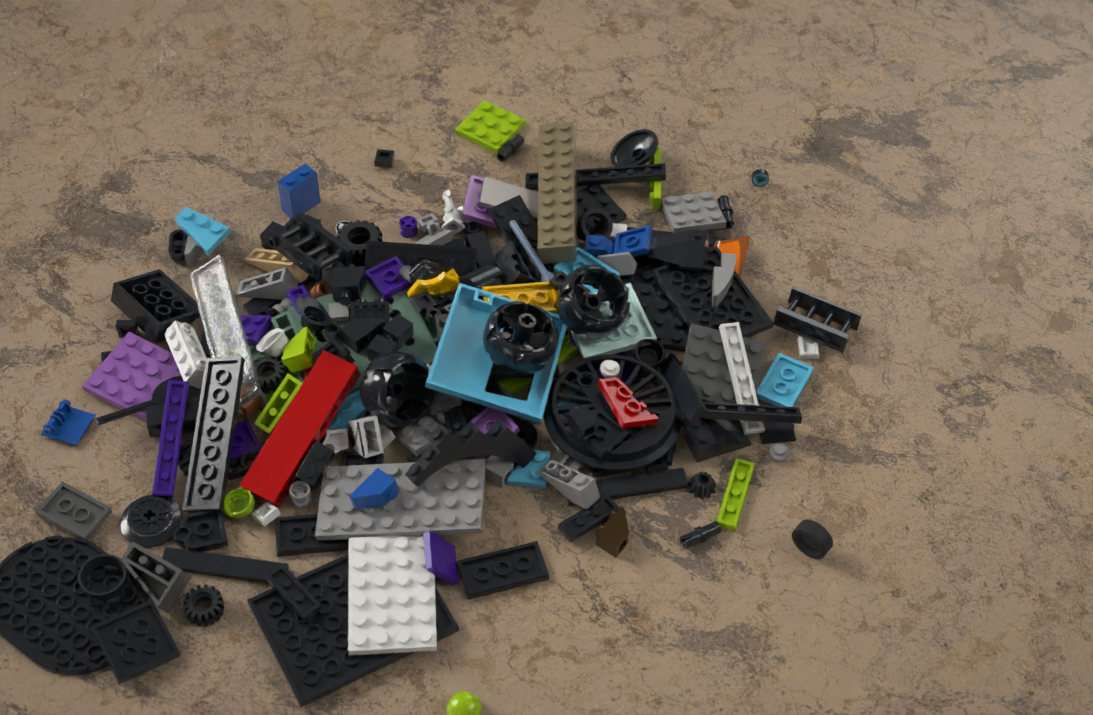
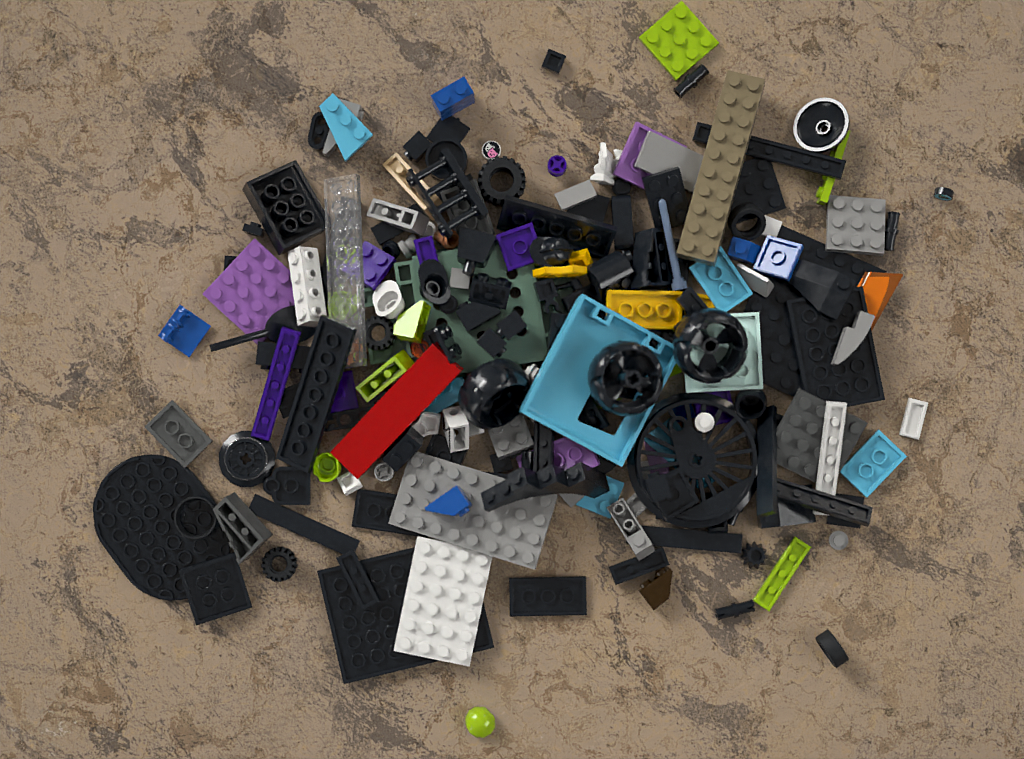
camera: 20 degrees right, 35 degrees up
(429, 223) = (578, 169): light grey plate -> none
(440, 558) = (494, 578): dark purple tile -> none
(624, 406) = (705, 471): red wing -> none
(814, 330) = (919, 413): black fence -> none

